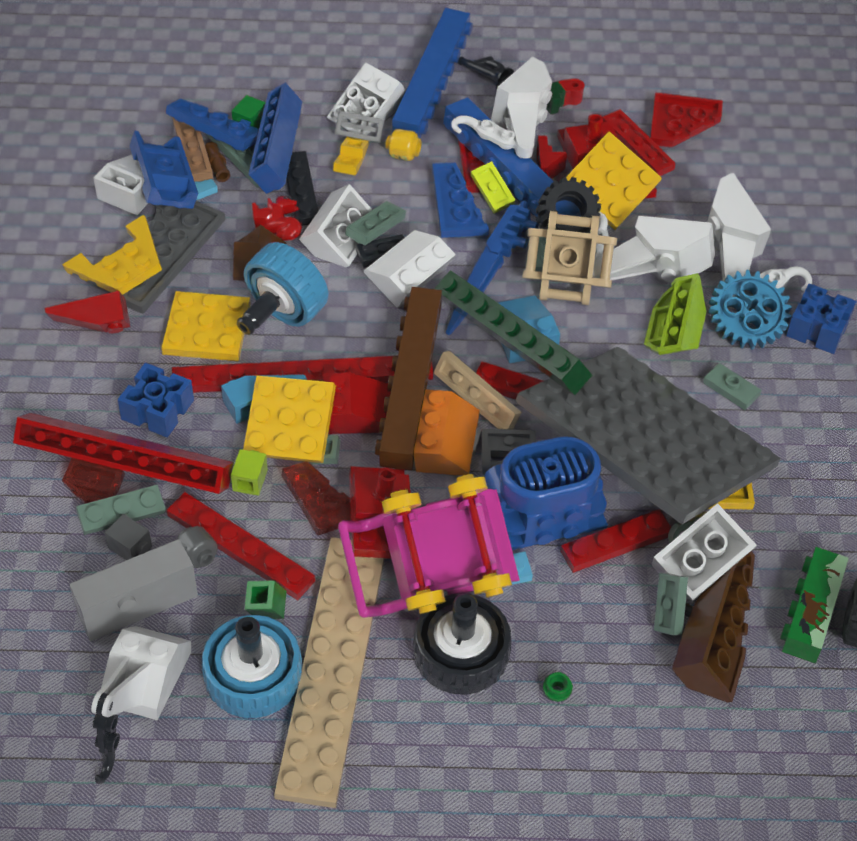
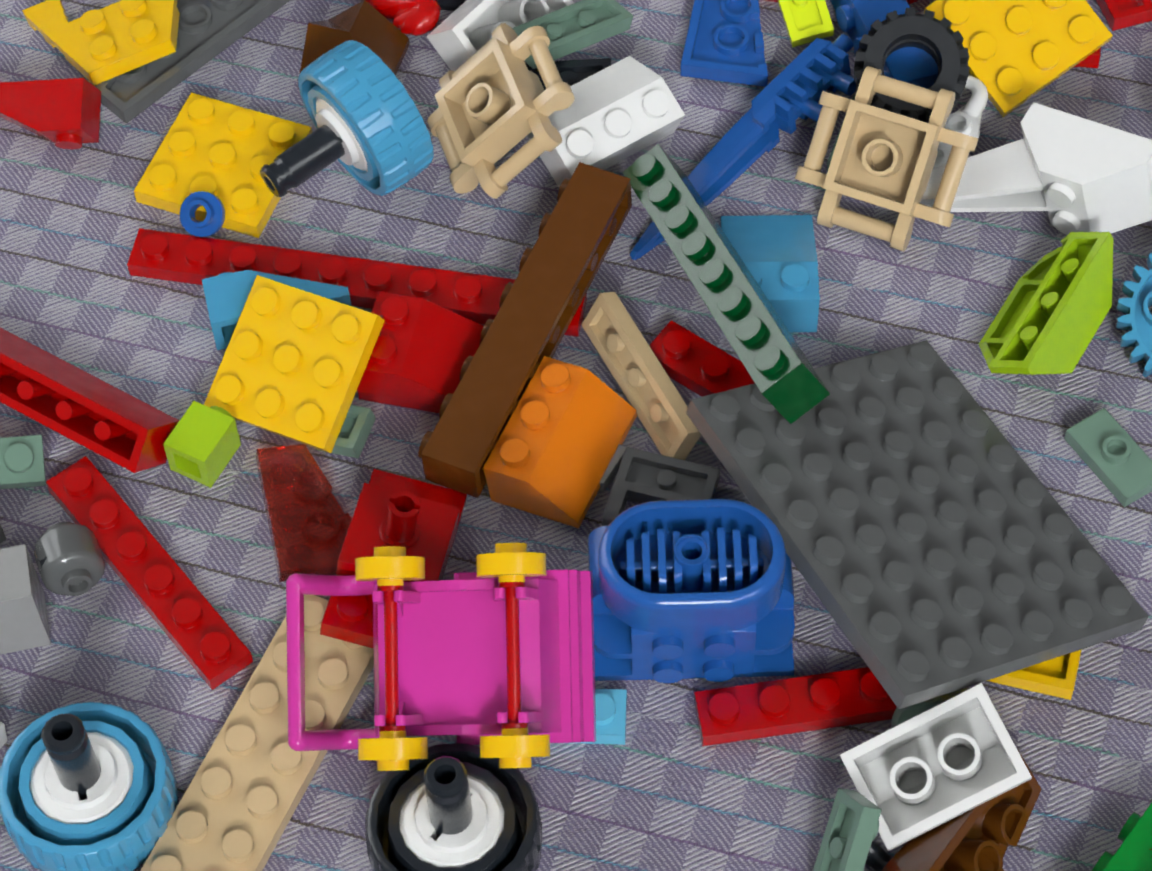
camera: 20 degrees right, 5 degrees up
(156, 400) = (88, 283): blue brick -> none
(214, 356) = (214, 218): none -> blue plate
(265, 599) = (147, 679): green brick -> none
(355, 266) = (494, 106): none -> tan brick

